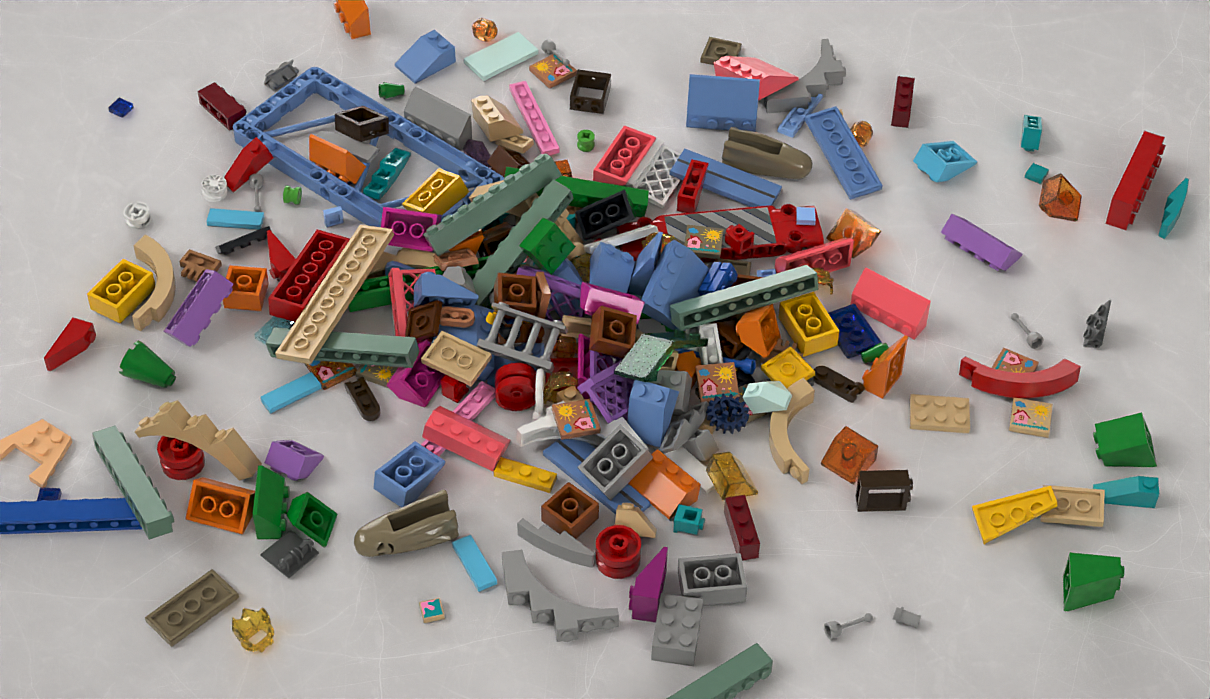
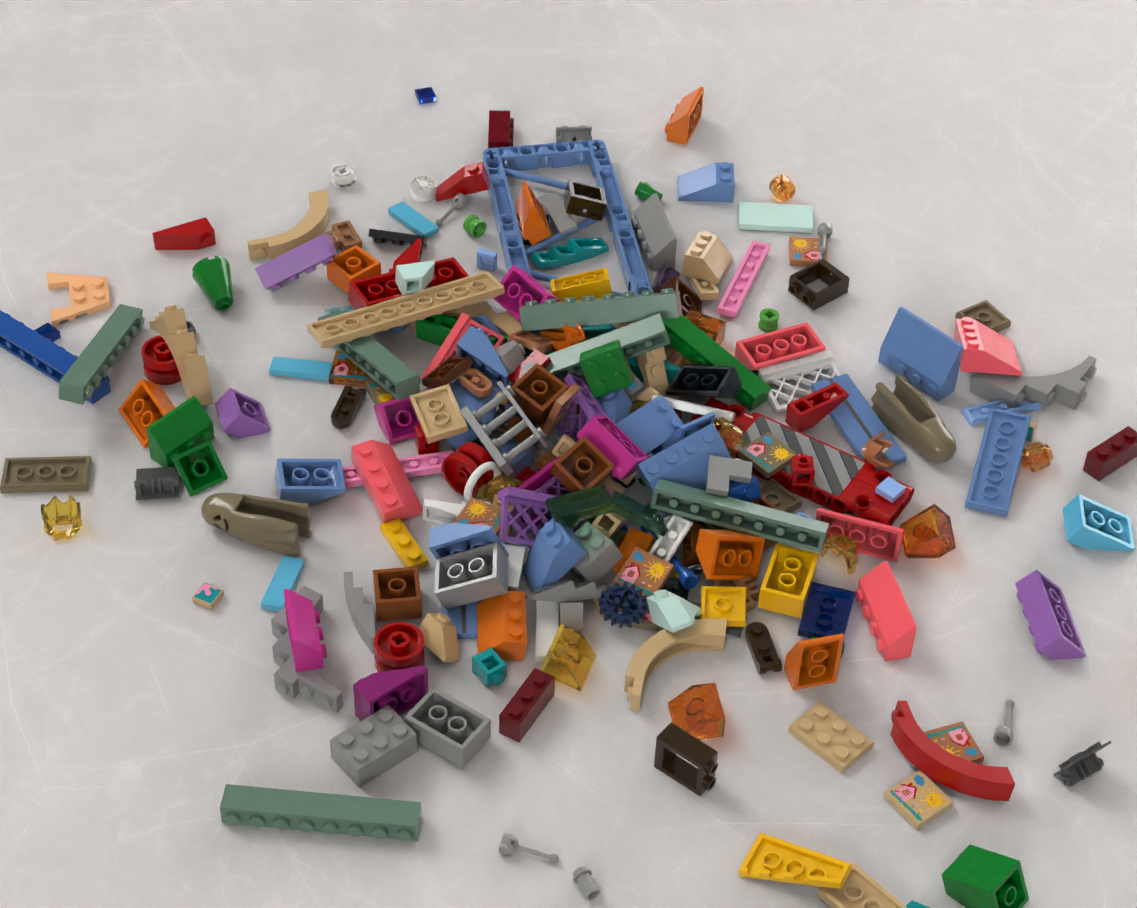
camera: 40 degrees right, 5 degrees down
(121, 291) = (262, 218): yellow brick -> none
(315, 263) = (414, 276): none -> light aqua slope
(484, 239) = (572, 337): none -> orange piece
(485, 281) = (535, 357): none -> tile
(551, 585) = (303, 632): none -> dark pink slope
(583, 441) = (460, 537): none -> medium blue slope
(707, 272) = (725, 469): none -> light grey tile
(767, 194) = (875, 449): none -> nougat piece

